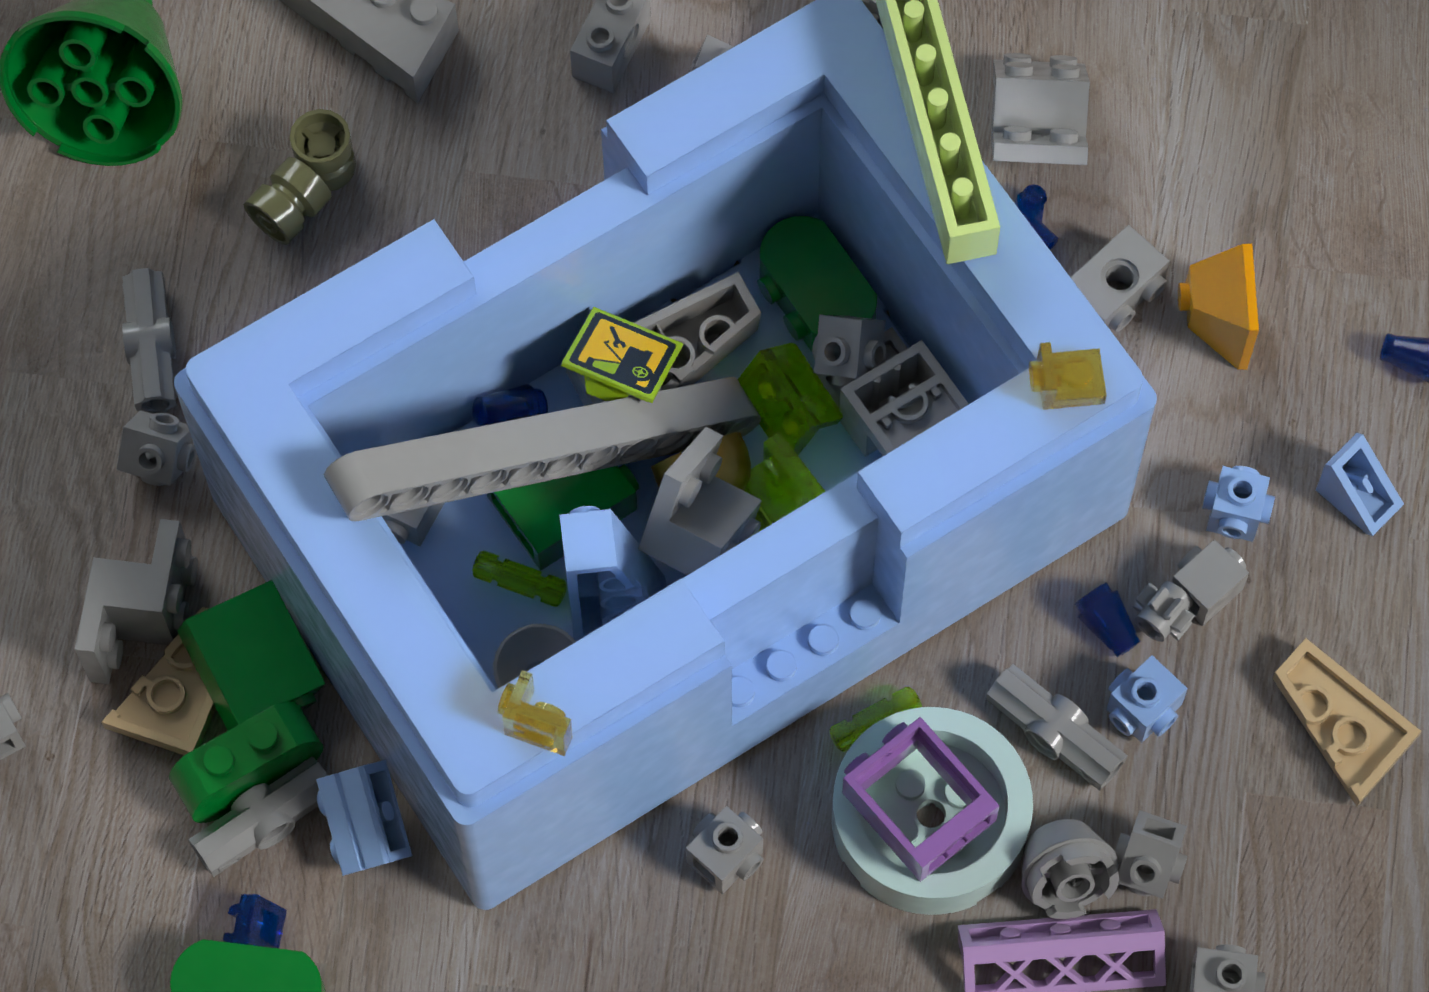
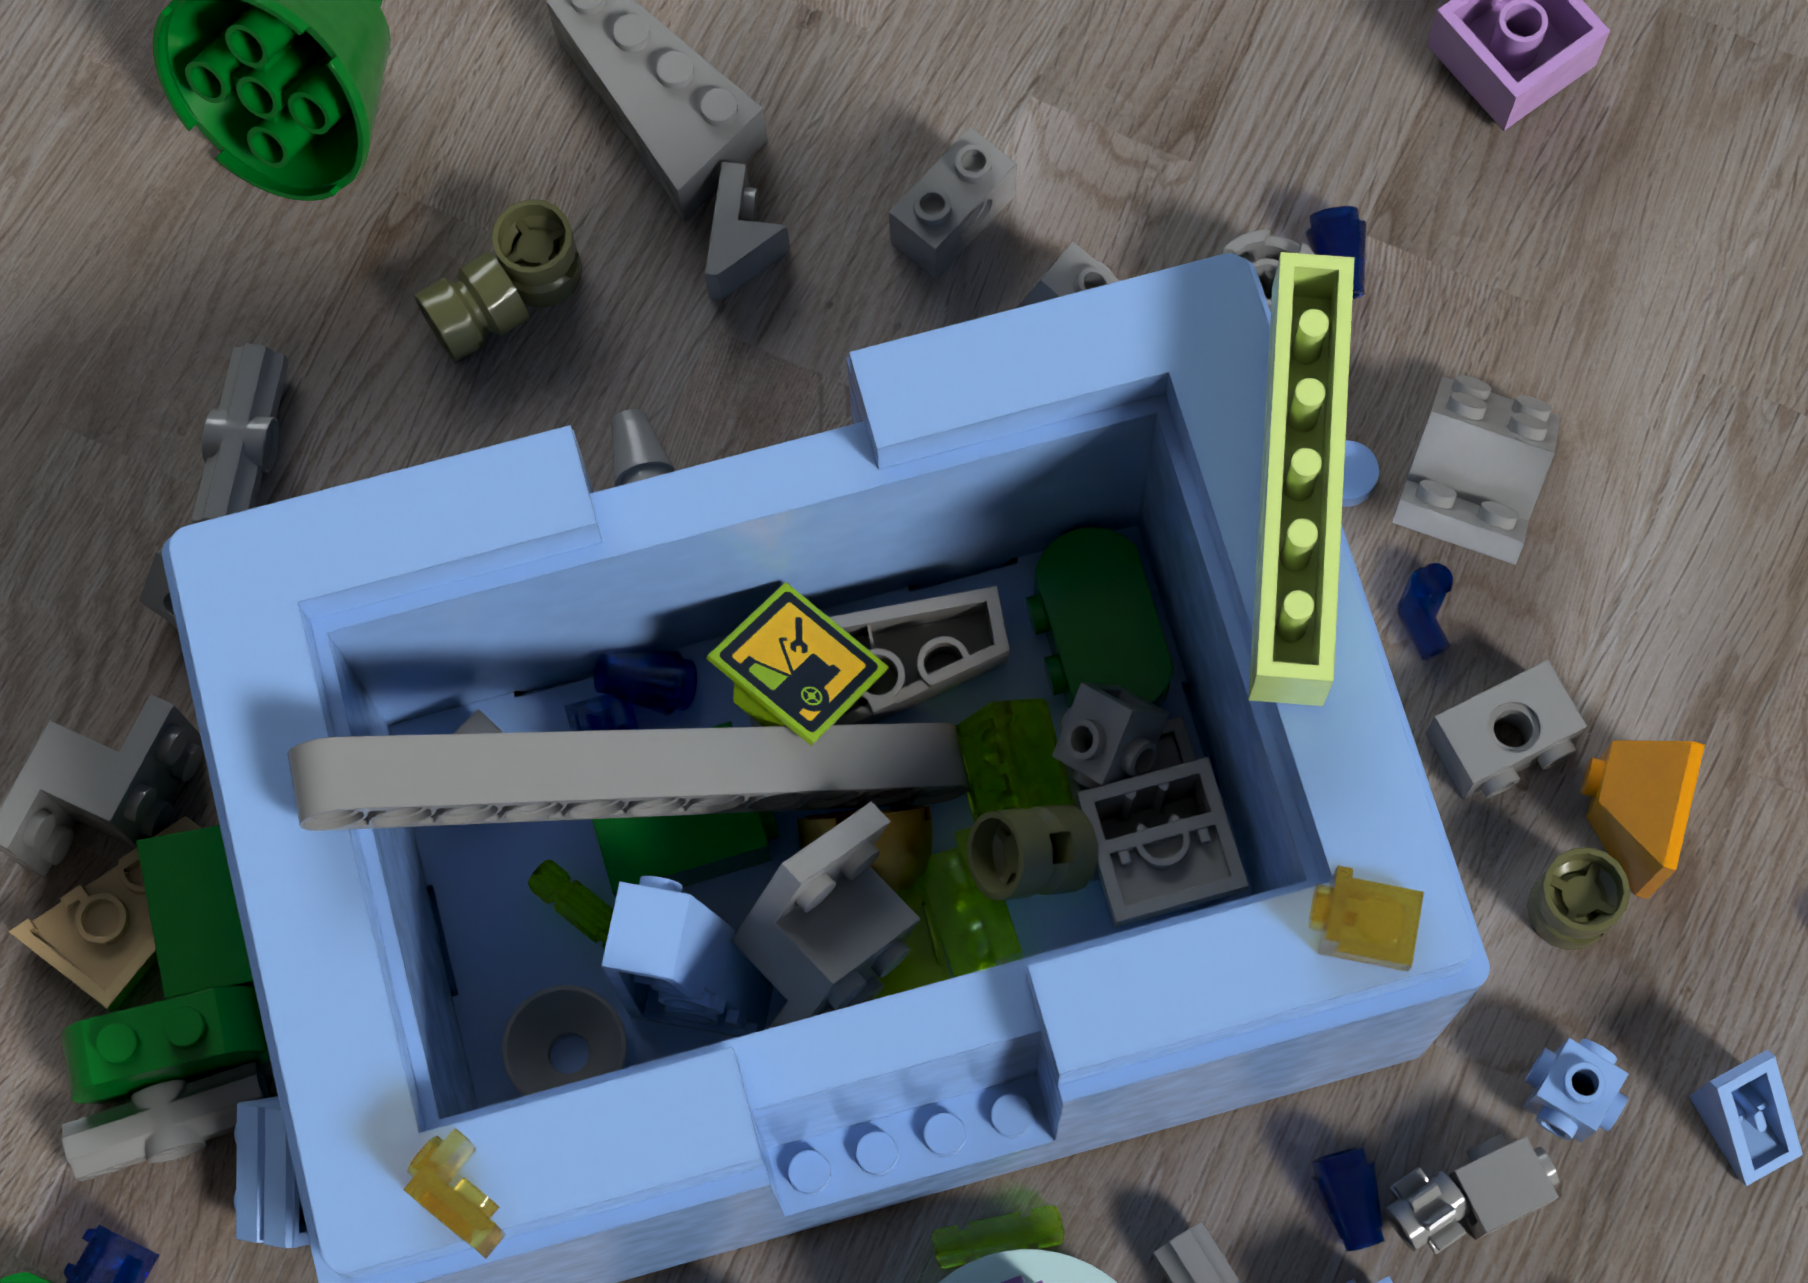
camera: 20 degrees right, 5 degrees up
(466, 104) = (738, 243): none -> light grey slope
(822, 435) = (1032, 851): none -> olive wheel
(1199, 377) = (1578, 898): none -> olive wheel

